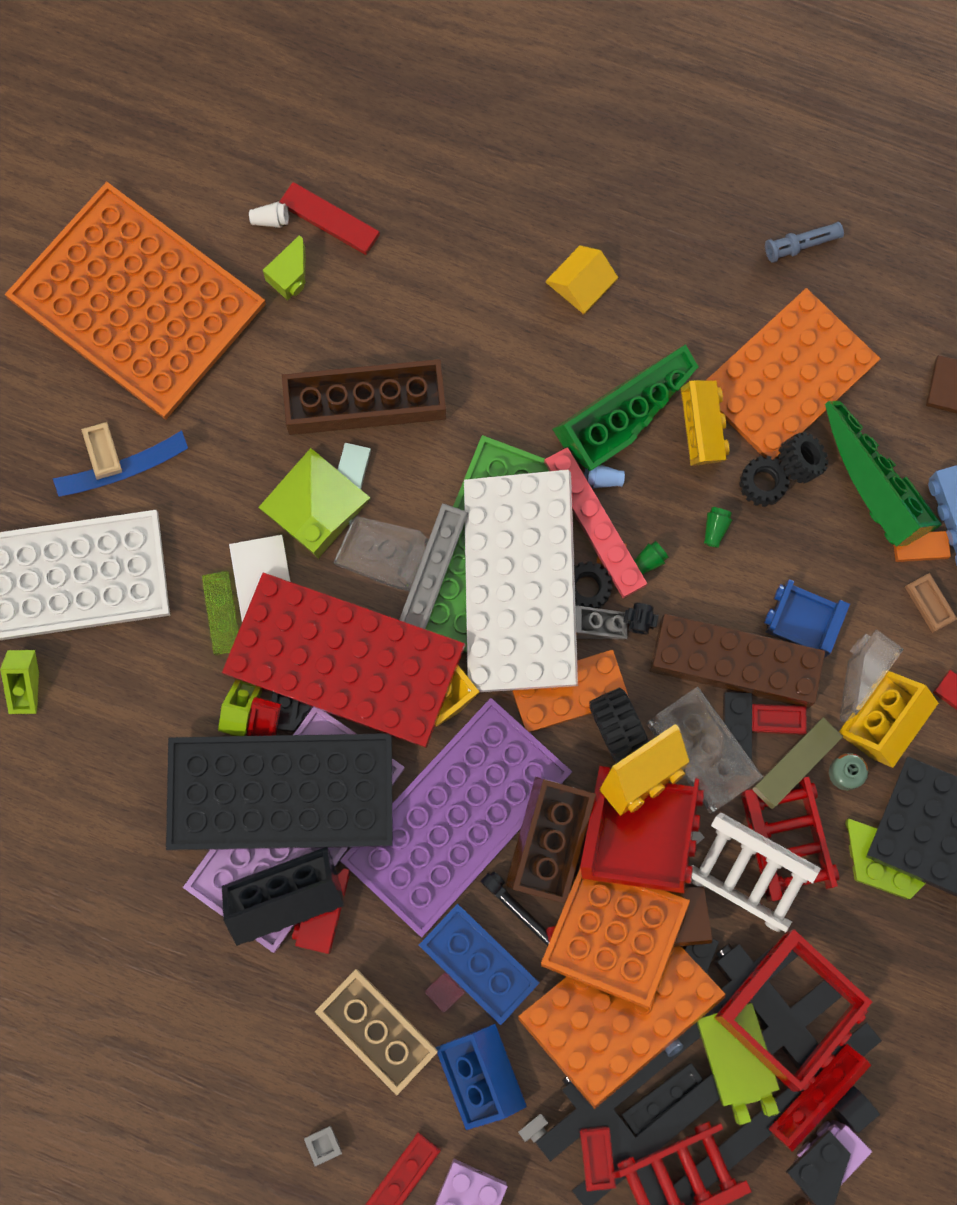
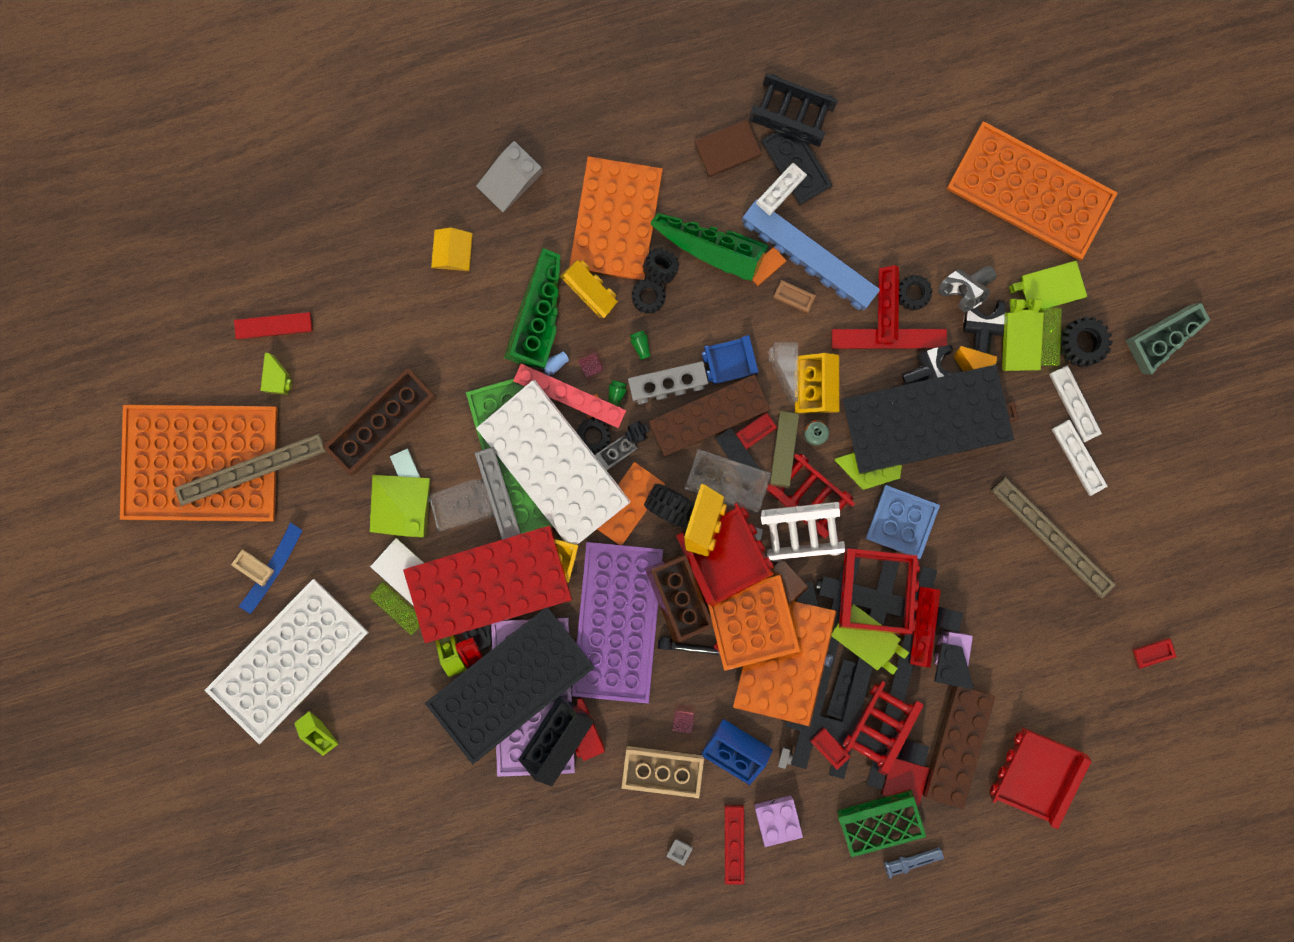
camera: 30 degrees left, 10 degrees up
(184, 344) = (250, 469): none -> dark tan tile
(270, 215) = (238, 350): white cone -> none
(479, 964) = (690, 693): blue plate -> none
(642, 509) = (590, 365): none -> clear pink tile
(704, 248) = (509, 177): none -> light grey slope
(757, 598) = (638, 383): none -> light grey brick
(792, 245) = (560, 134): sand blue pin -> none
(878, 951) = (902, 521): none -> medium blue plate

